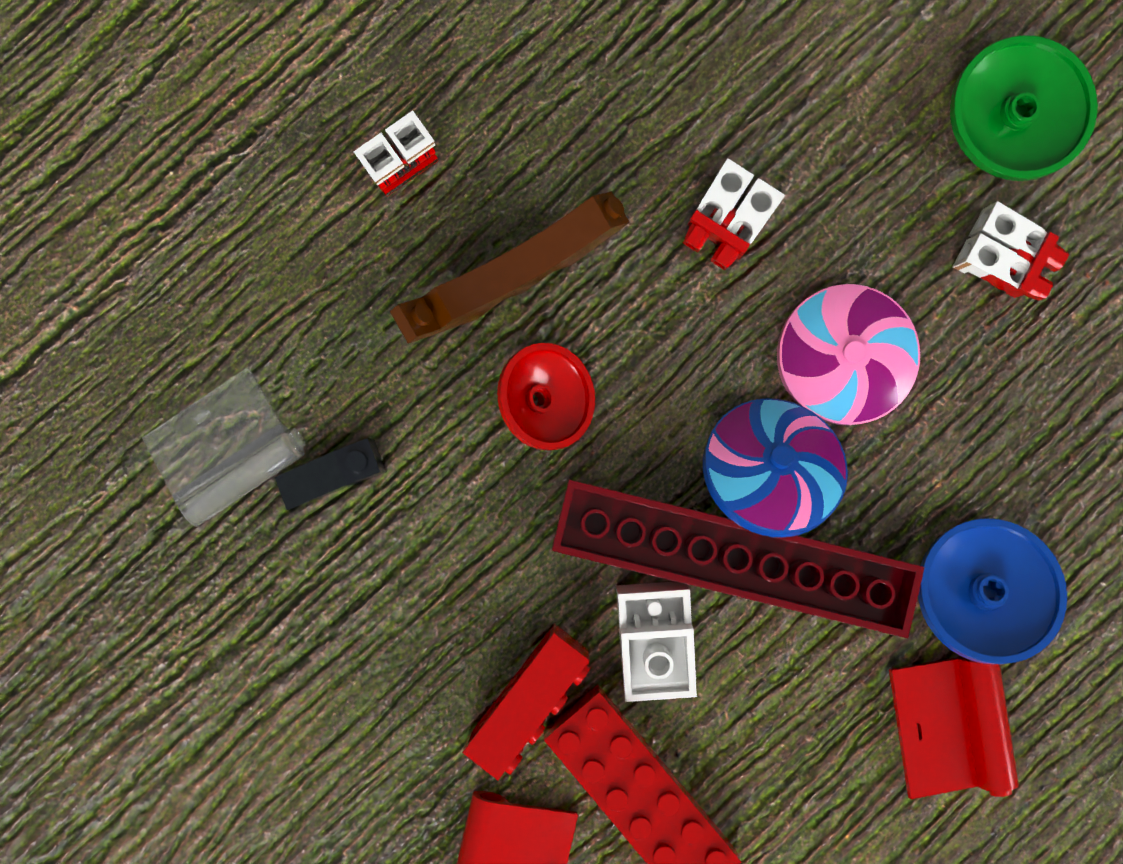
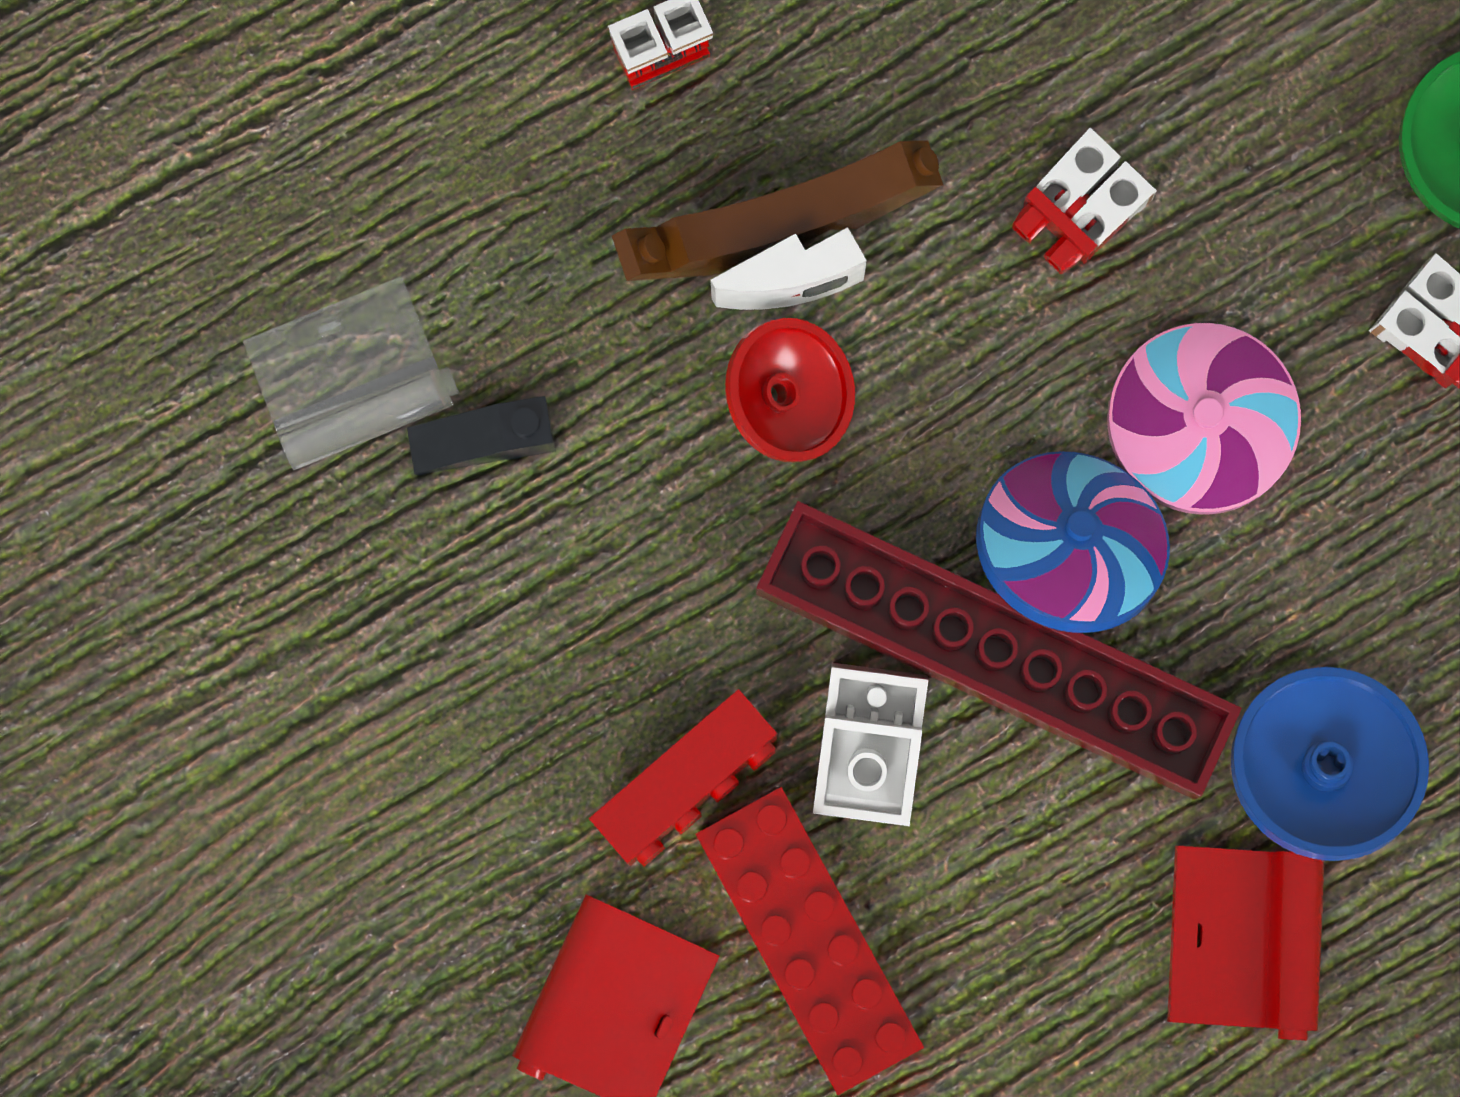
camera: 20 degrees right, 5 degrees down
(530, 311) = (790, 274): none -> white slope

